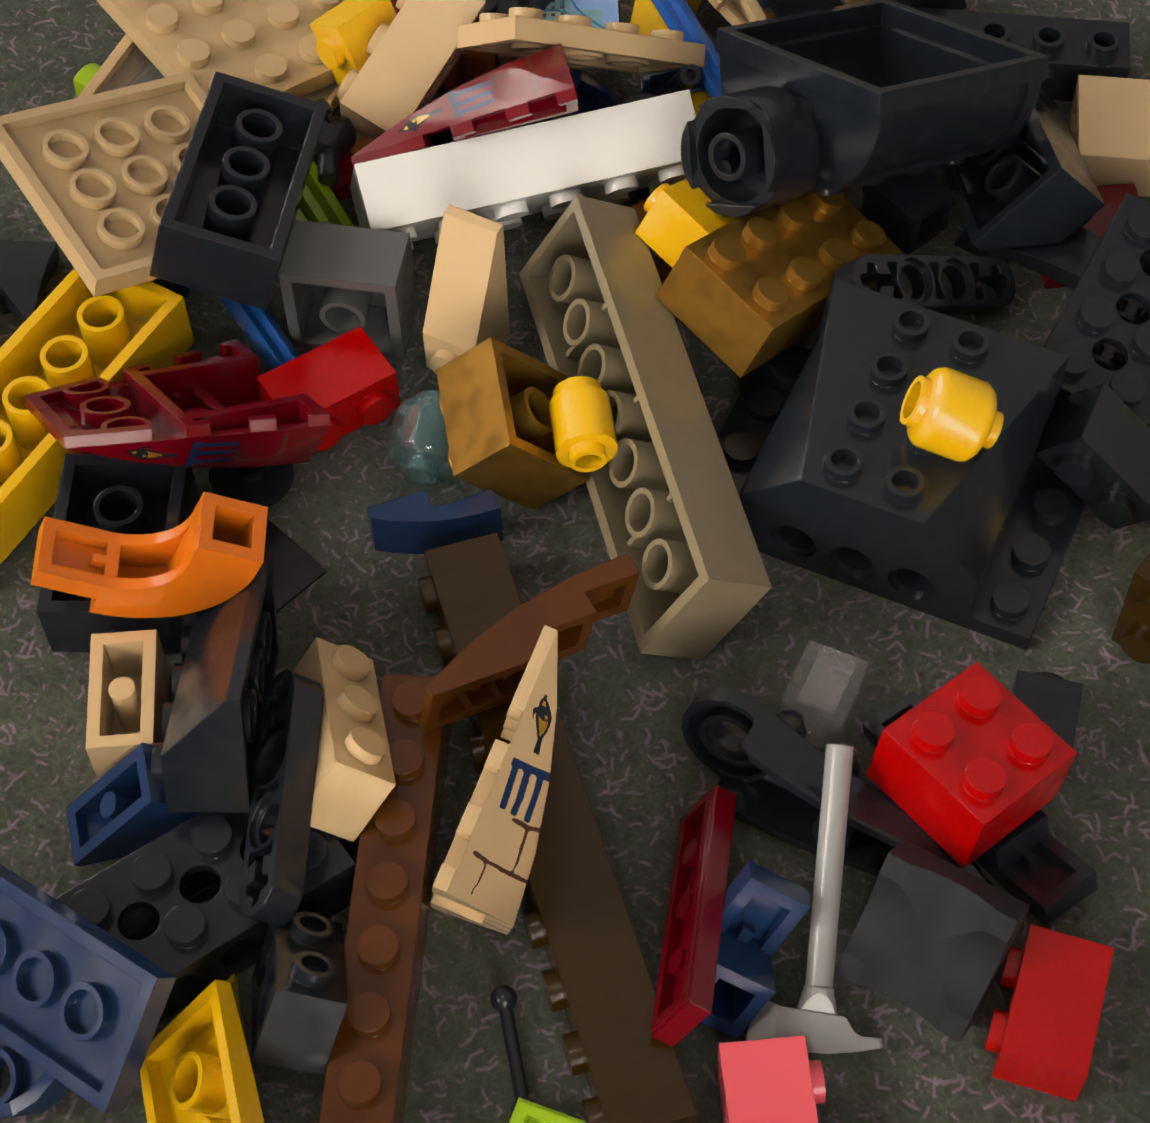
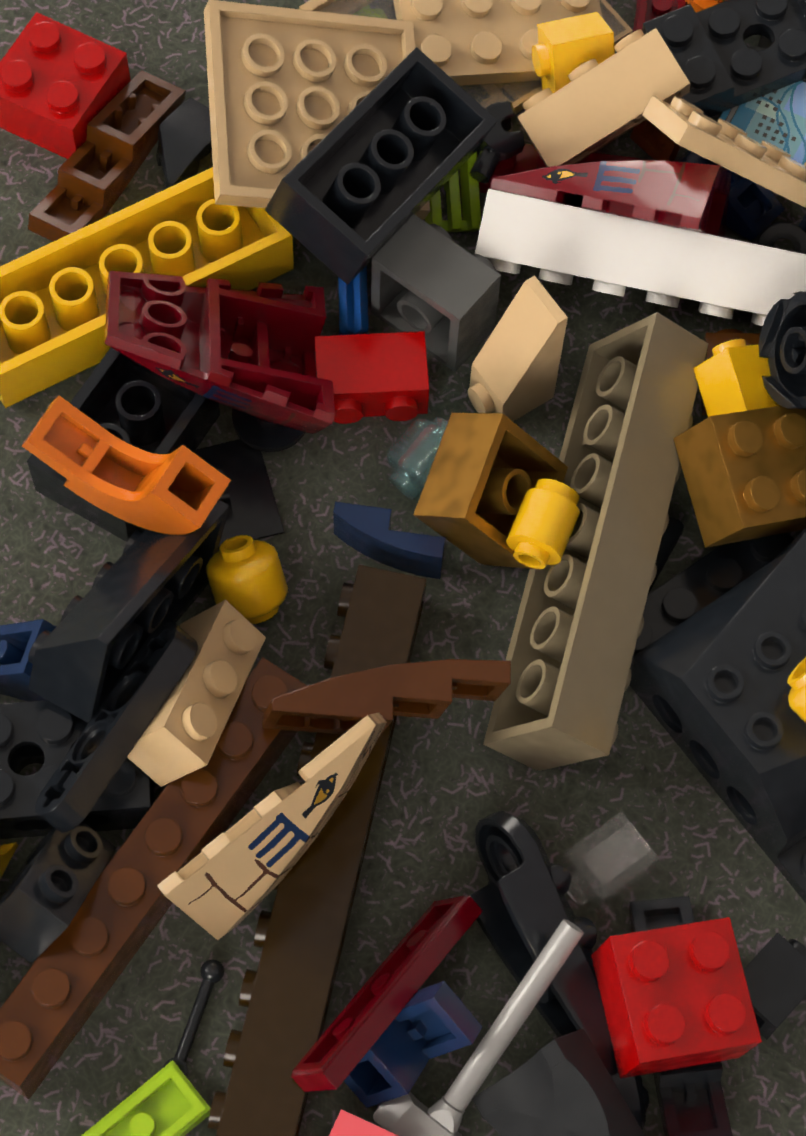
camera: 25 degrees right, 10 degrees up
(124, 695) = (58, 567): tan brick -> none
(319, 609) = (248, 577): none -> yellow head

